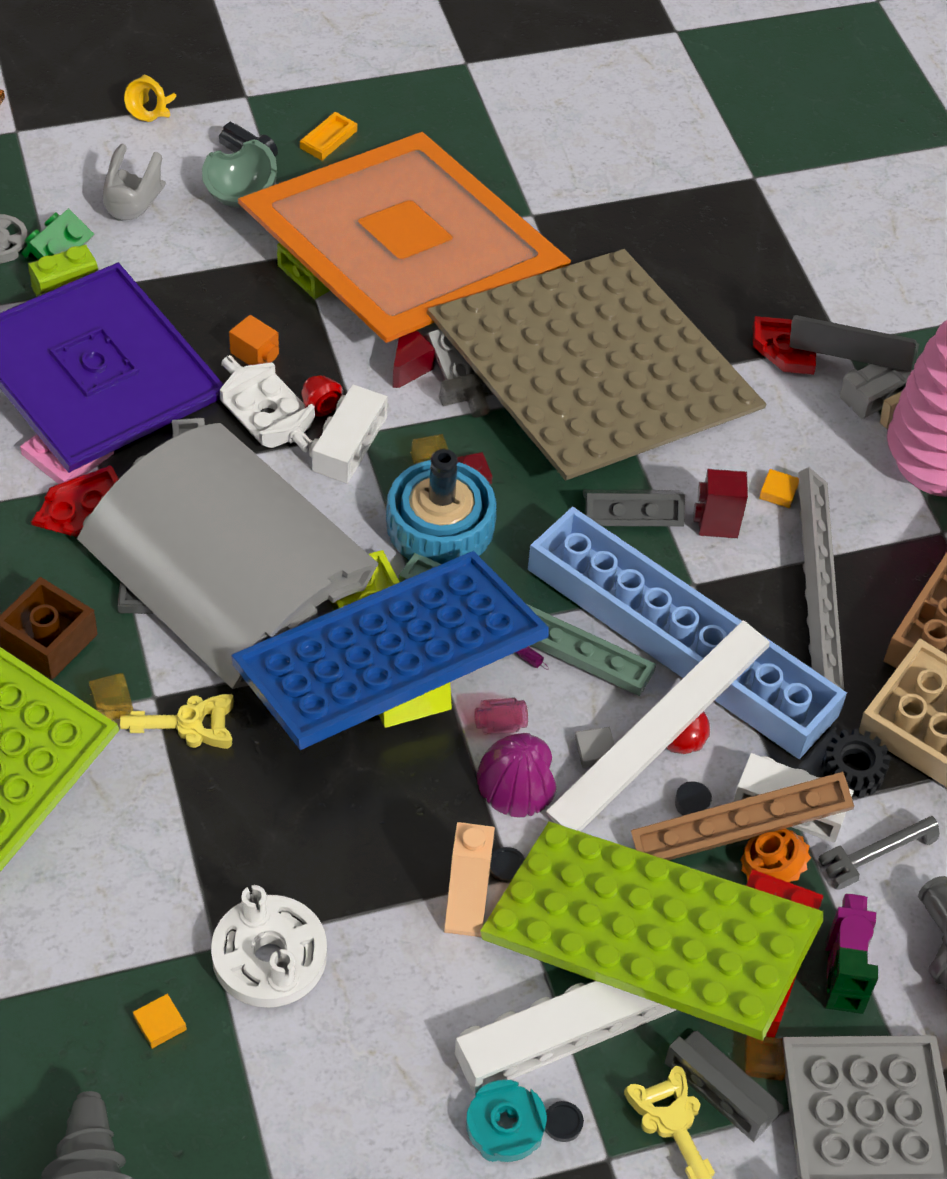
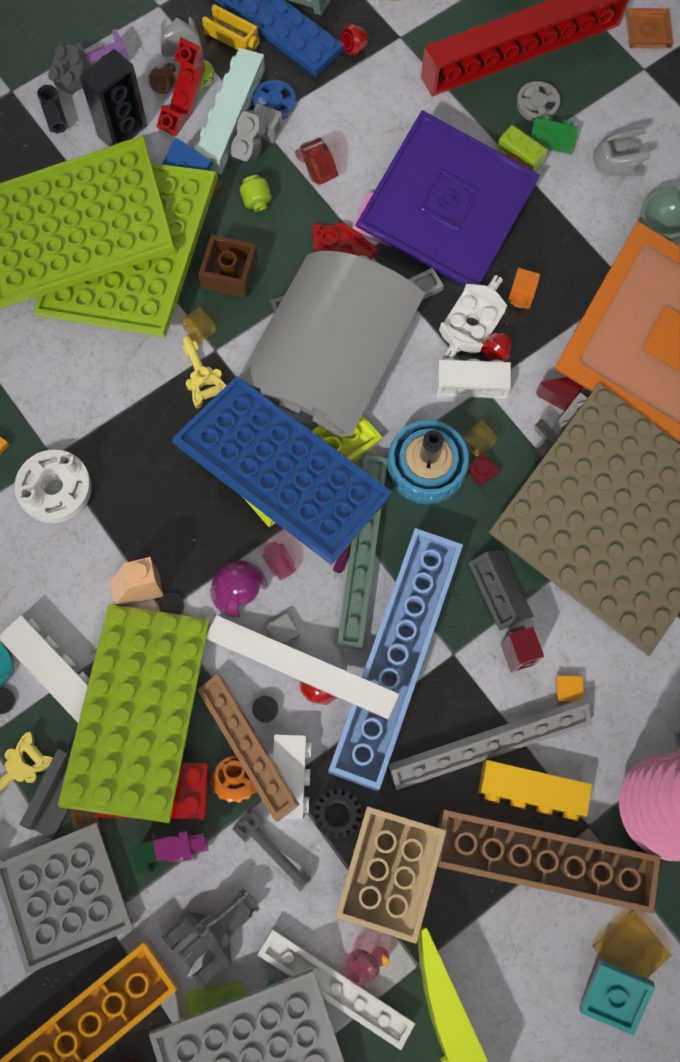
camera: 70 degrees right, 20 degrees up
(887, 560) = (534, 789): none -> yellow brick

